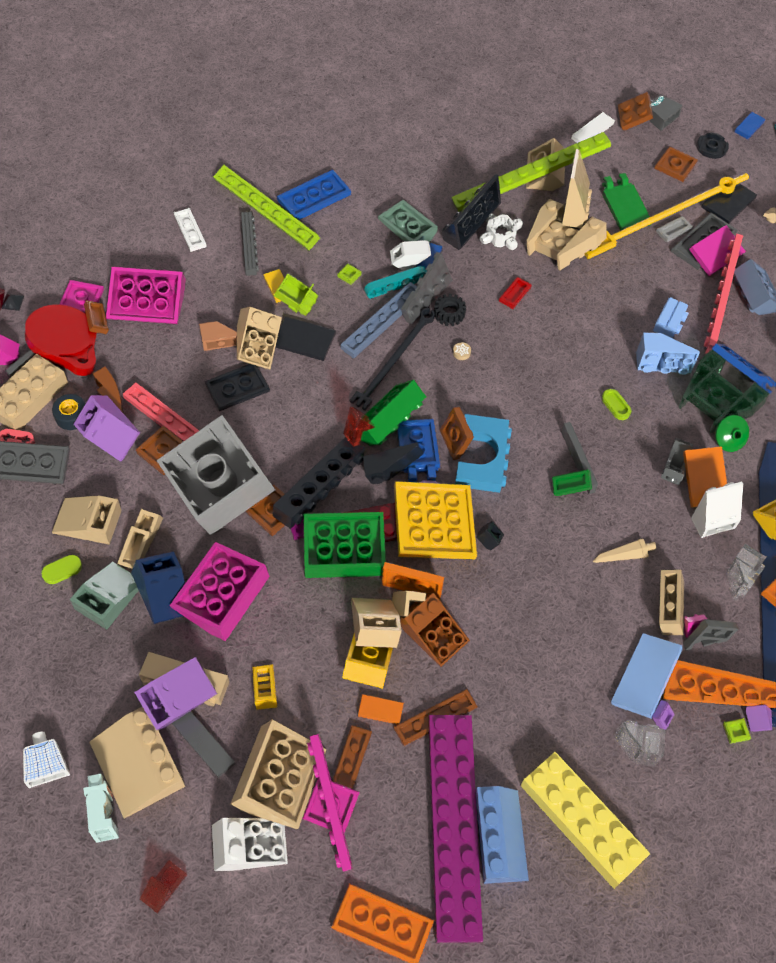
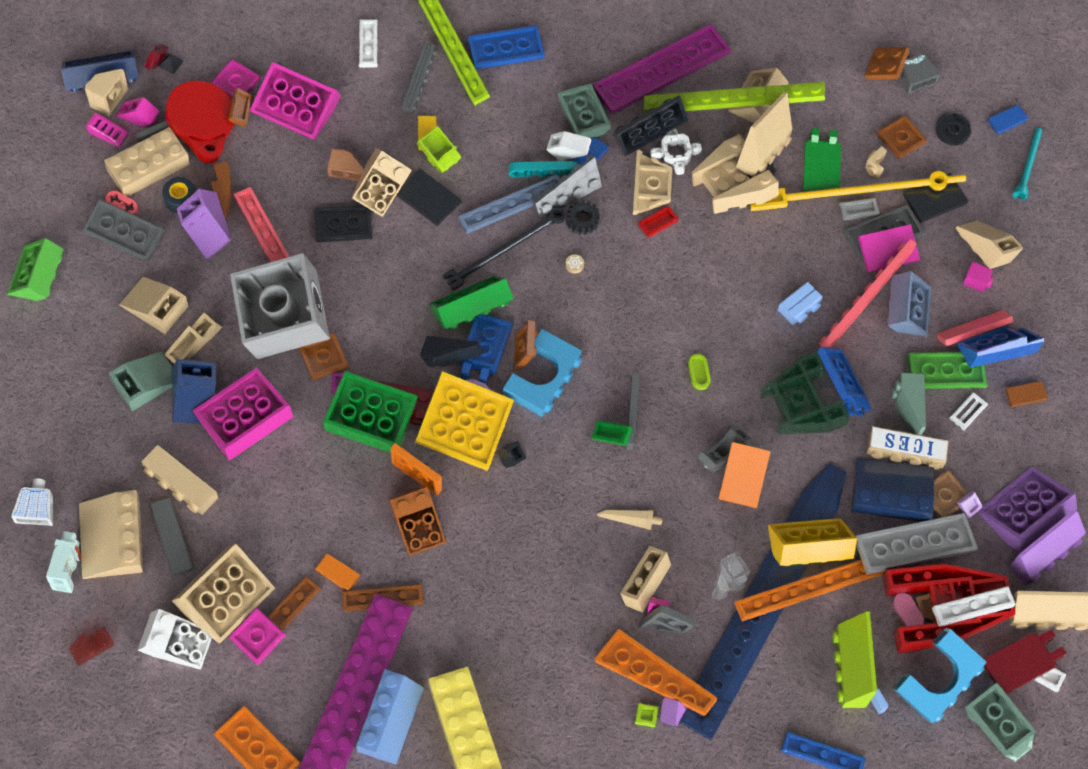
camera: 20 degrees right, 5 degrees up
(61, 569) = (114, 342): lime tile -> none
(157, 446) = (246, 256): dark orange plate -> none
(175, 693) = (164, 490): medium lavender slope -> none
(266, 699) = (241, 525): yellow slope -> none
(318, 483) = (381, 336): black brick -> none
(331, 812) = (253, 641): dark pink plate -> none
(349, 274) = (502, 144): lime tile -> none
(356, 424) = (430, 303): clear red slope -> none
(367, 664) = (349, 520): yellow slope -> none
(375, 622) = (364, 493): tan slope -> none
(402, 598) = (400, 480): tan panel -> none
(454, 172) = (661, 69): none -> magenta plate
(494, 264) = (651, 184): none -> tan wing
(594, 127) = (833, 67): white tile -> none
(640, 742) = (550, 689): clear slope -> none
(647, 675) = (589, 634): light blue tile -> none
(663, 715) = (584, 675): medium lavender tile -> none
(665, 354) = (768, 339): light blue slope -> none
(668, 192) = (872, 165): none -> tan bracket
(719, 509) = (734, 510): white slope -> none
(726, 432) = (790, 435): green dish -> none

